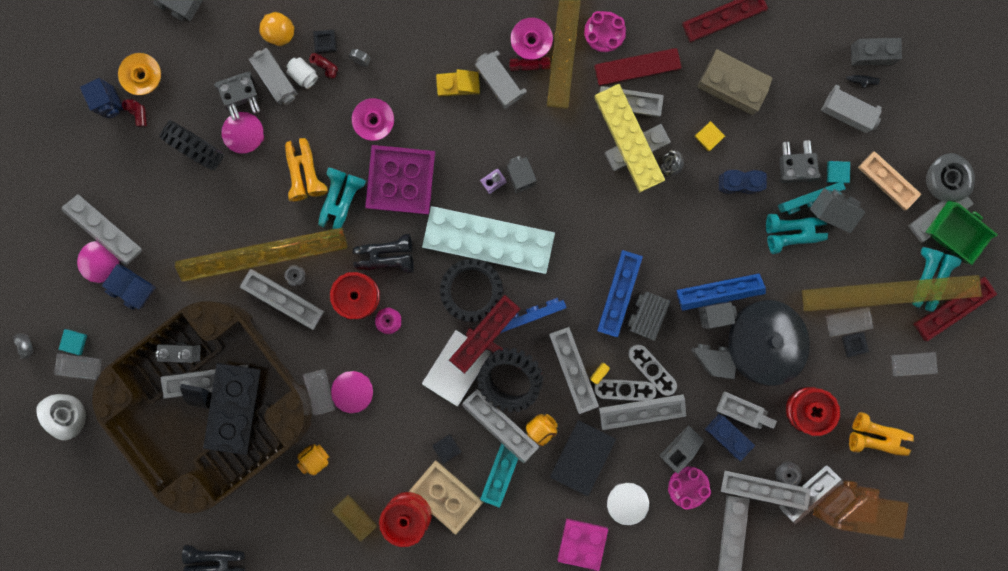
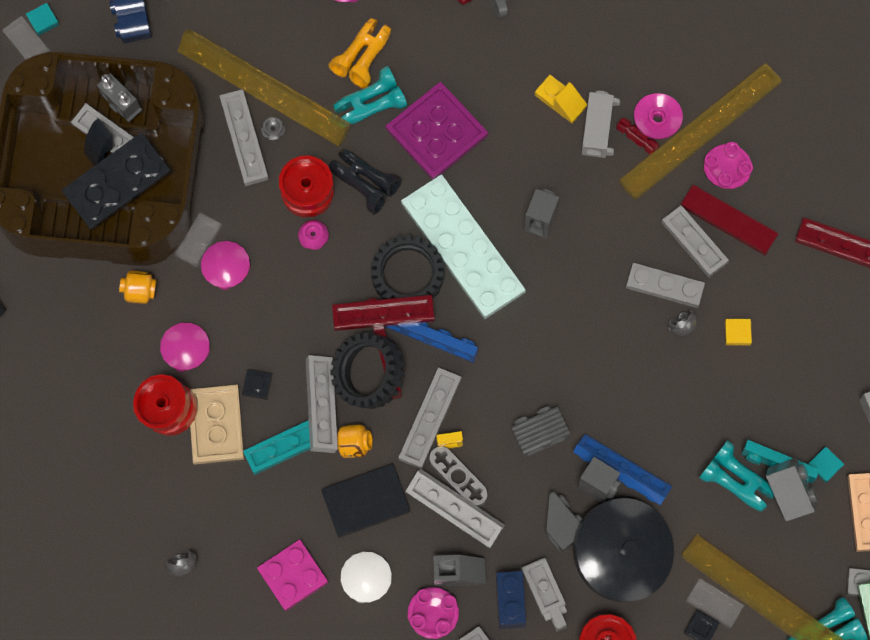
camera: 45 degrees right, 15 degrees down
(354, 518) = (123, 368): clear yellow plate -> none
(365, 111) = (461, 53): dark pink dish -> none
(378, 467) = (185, 346): none -> dark pink dish
(446, 378) = (316, 328): white tile -> none
(496, 177) = (518, 204): lavender piece -> none
(619, 293) = (532, 391): blue plate -> none
(629, 138) = (663, 267): light yellow piece -> none
(661, 369) = (506, 464): light grey beam -> none
(735, 82) = (802, 306): dark tan slope -> none
(748, 183) = (734, 396): dark blue brick -> none
(799, 168) = (791, 428): dark grey piece -> none

